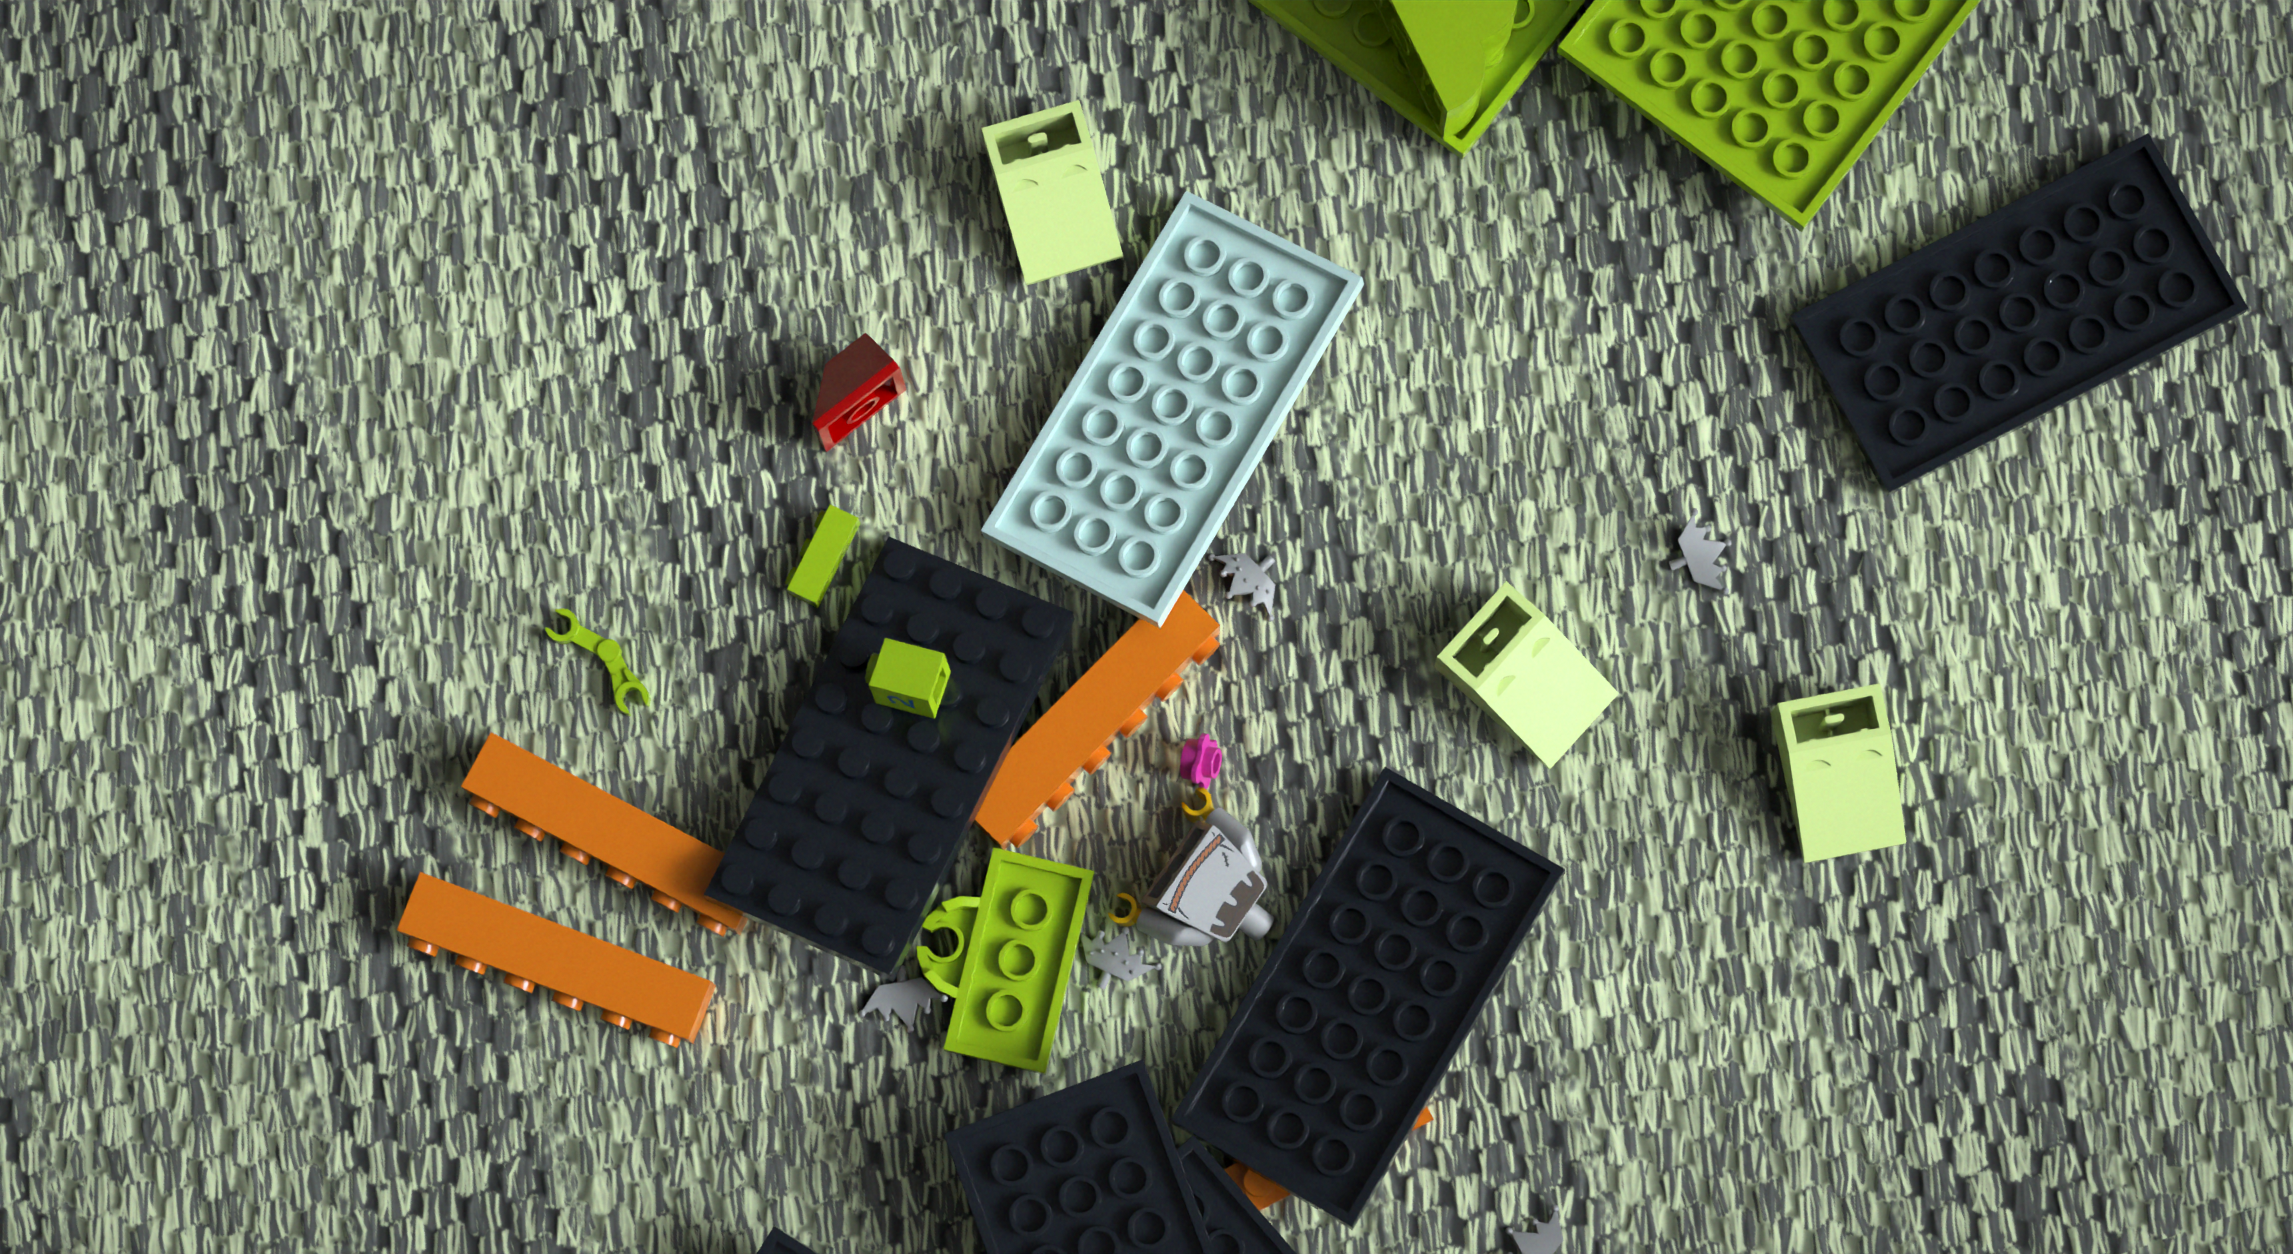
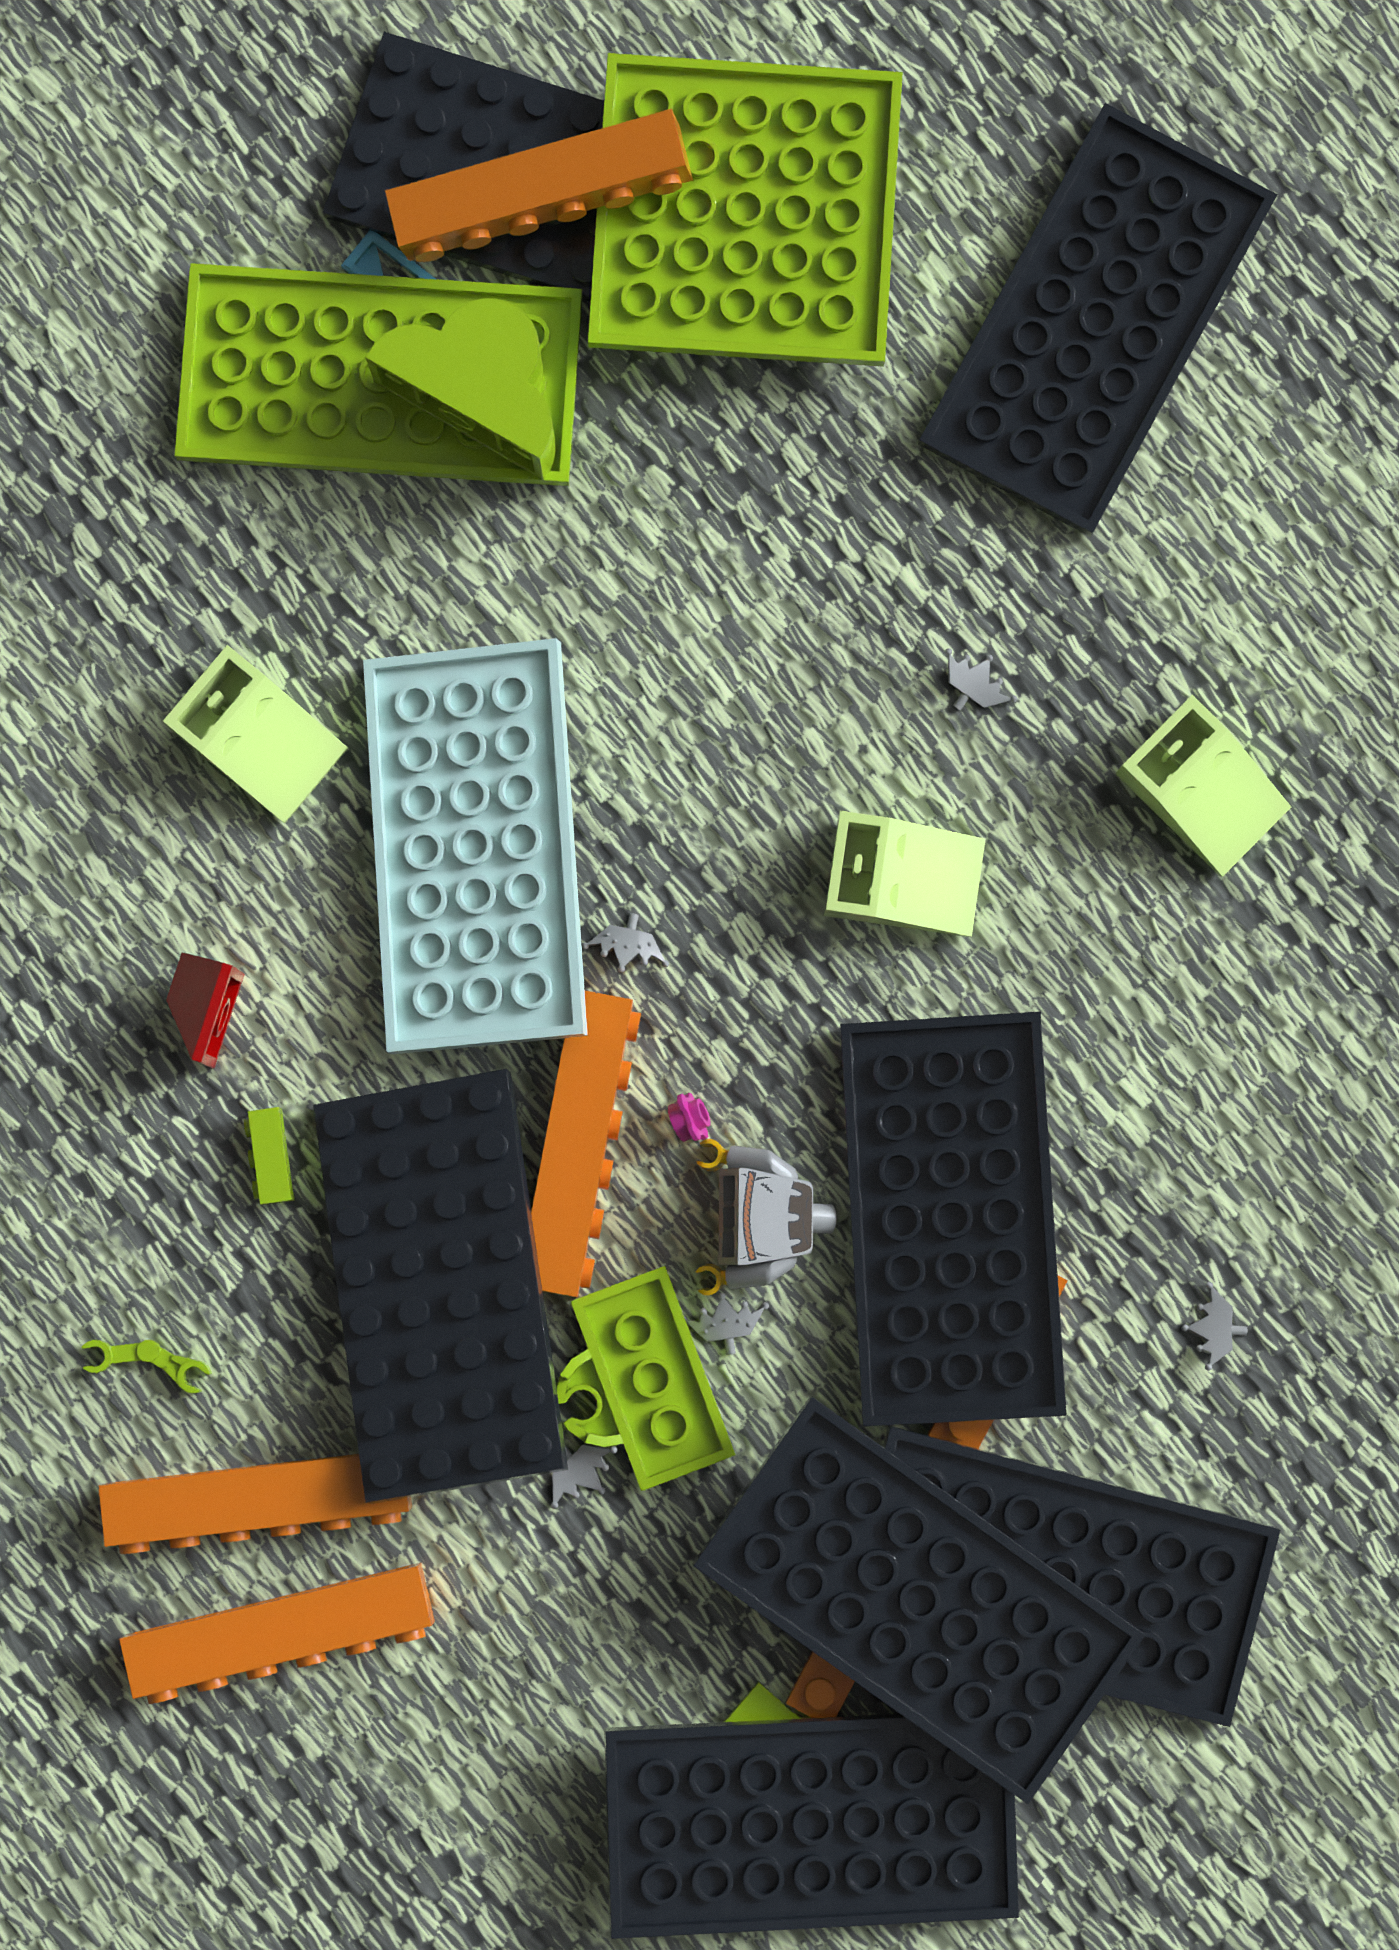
camera: 40 degrees left, 5 degrees up
(908, 677) = (411, 1214): lime brick -> none

